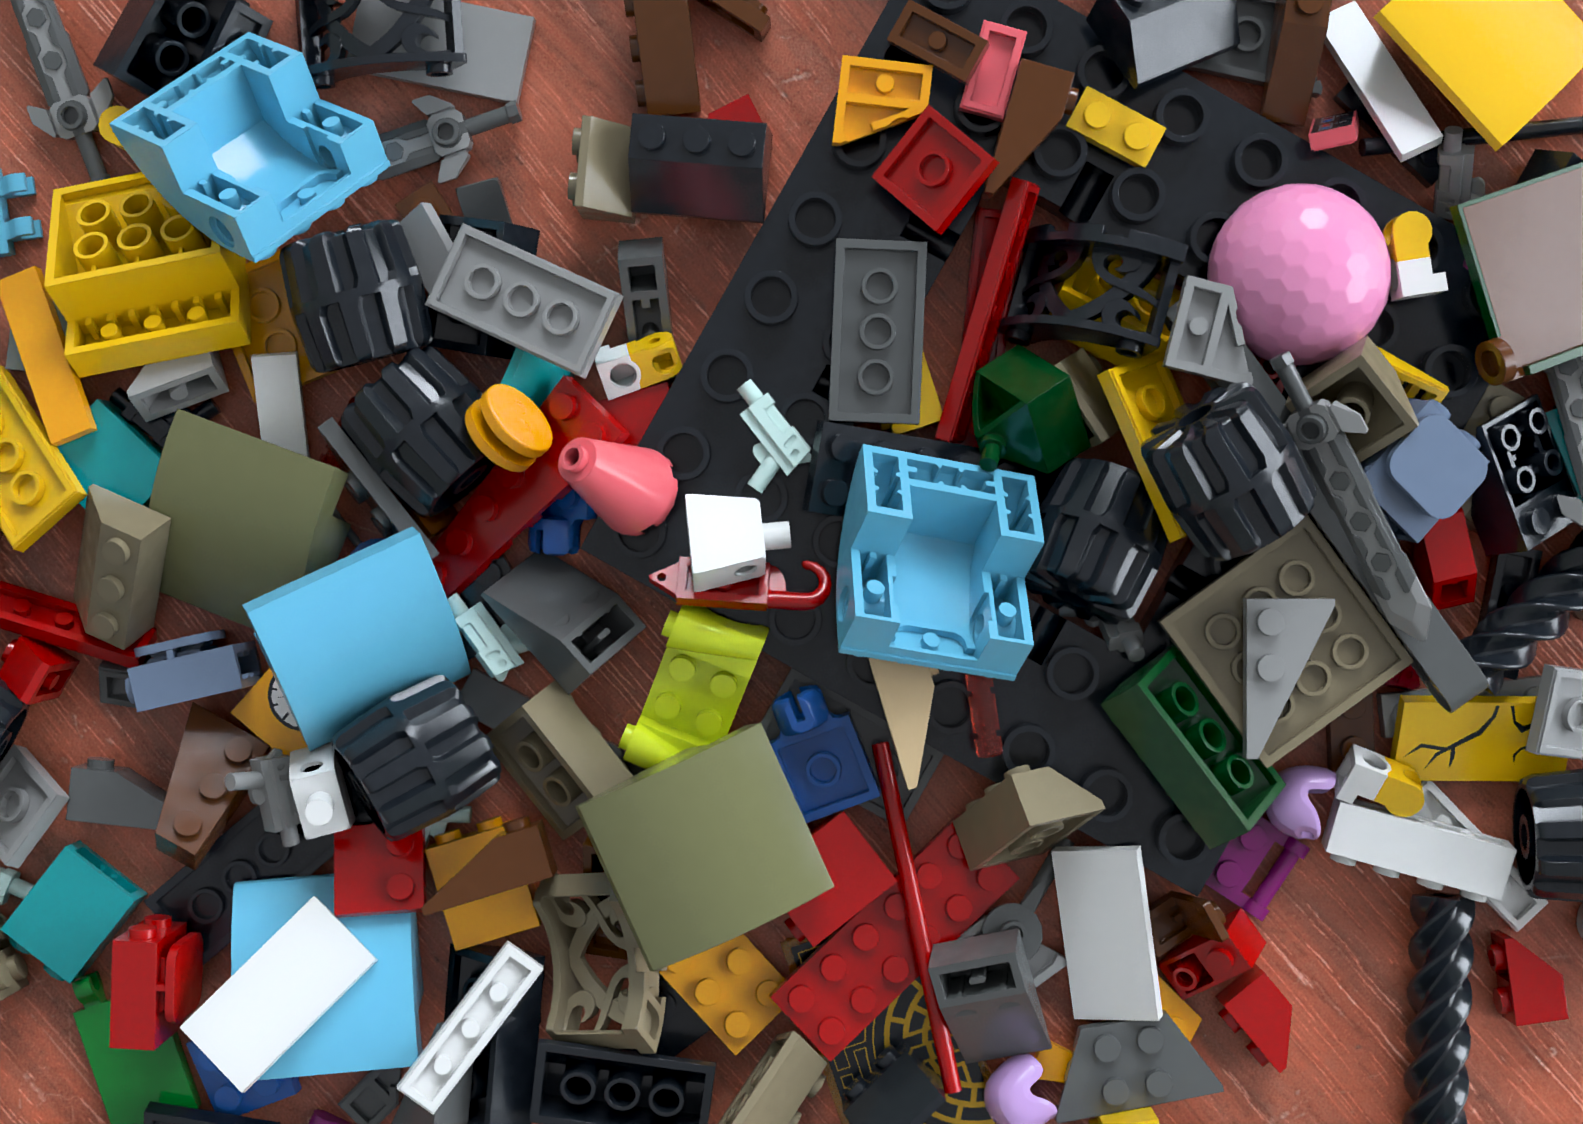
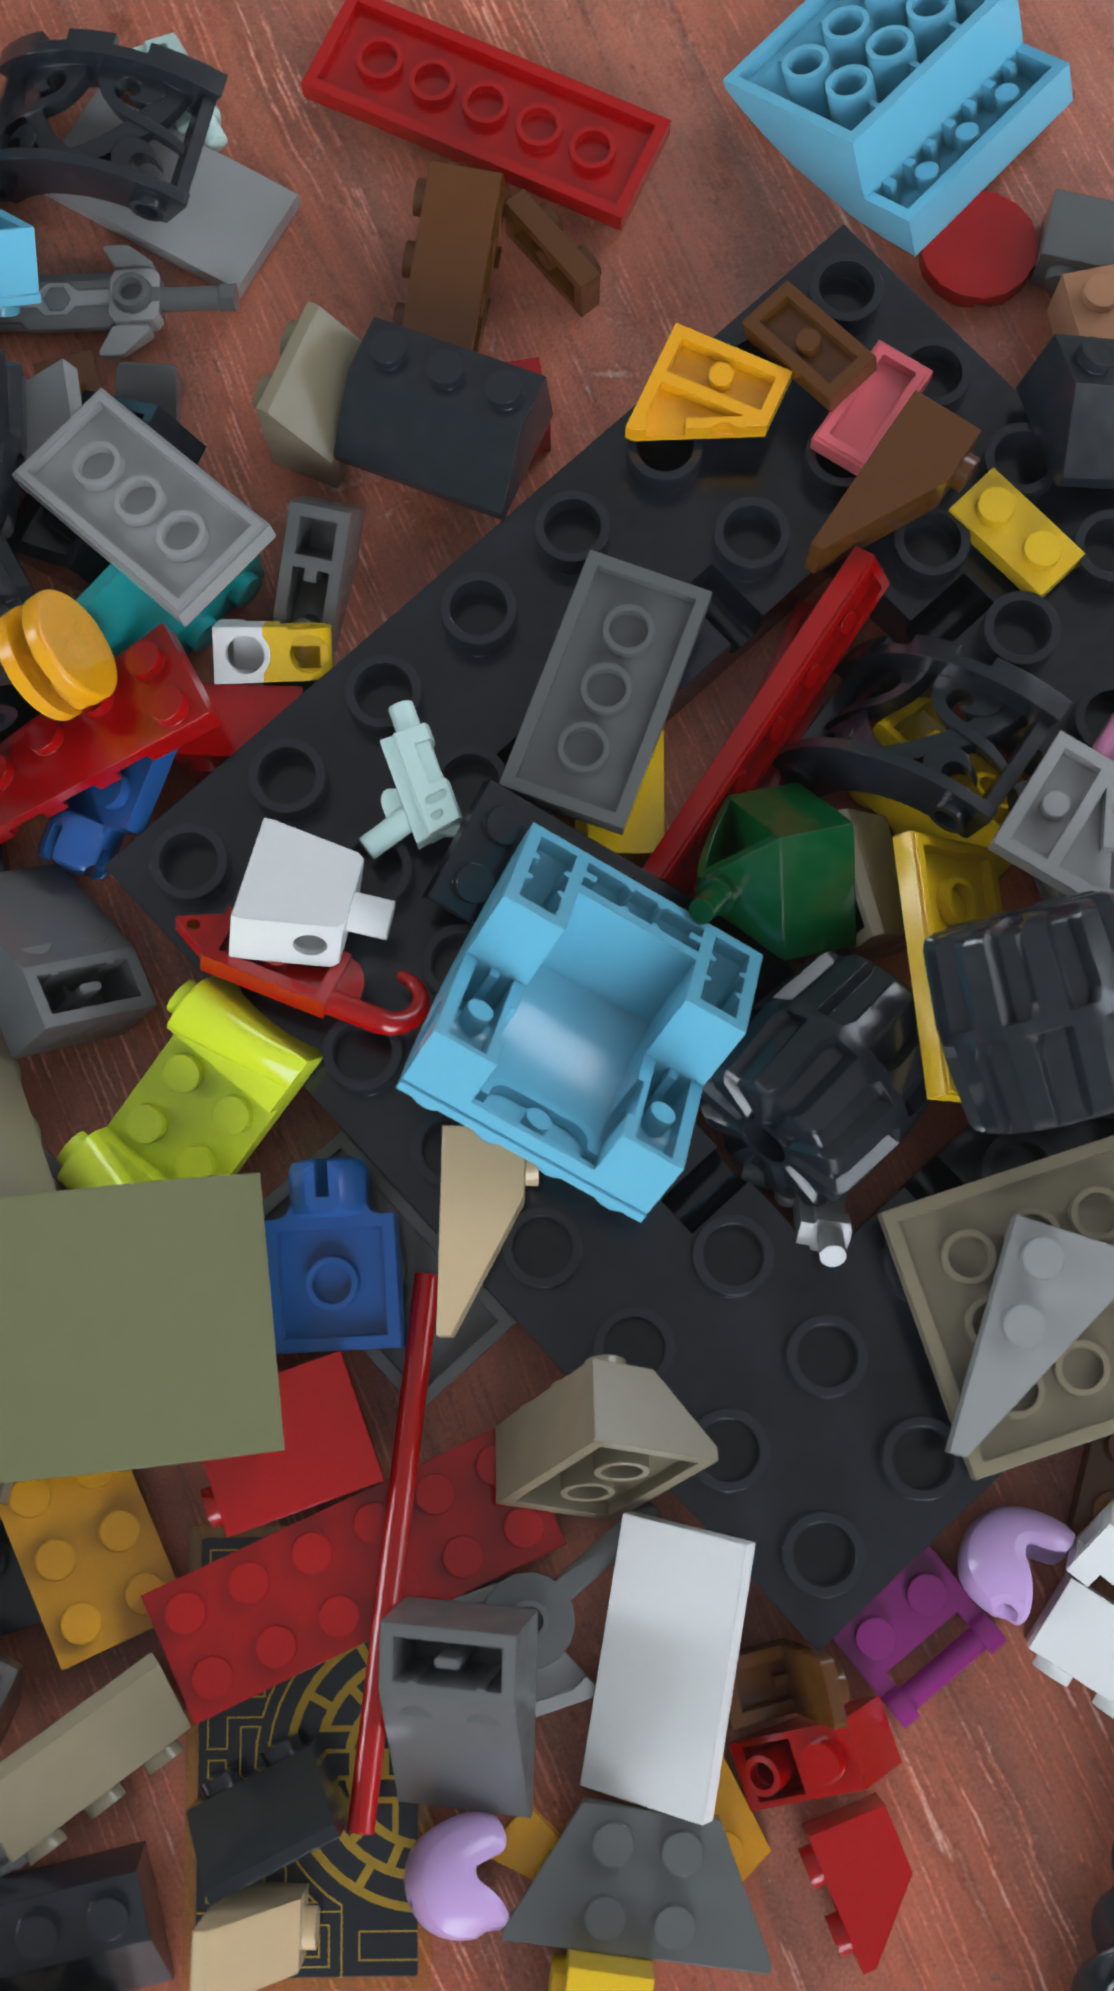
camera: 20 degrees right, 10 degrees down
(620, 482) = (176, 769): coral cone -> none
(935, 169) = (753, 500): red plate -> none
(984, 716) = (585, 1267): clear red axle -> none
(1192, 748) = (874, 1417): dark green slope -> none

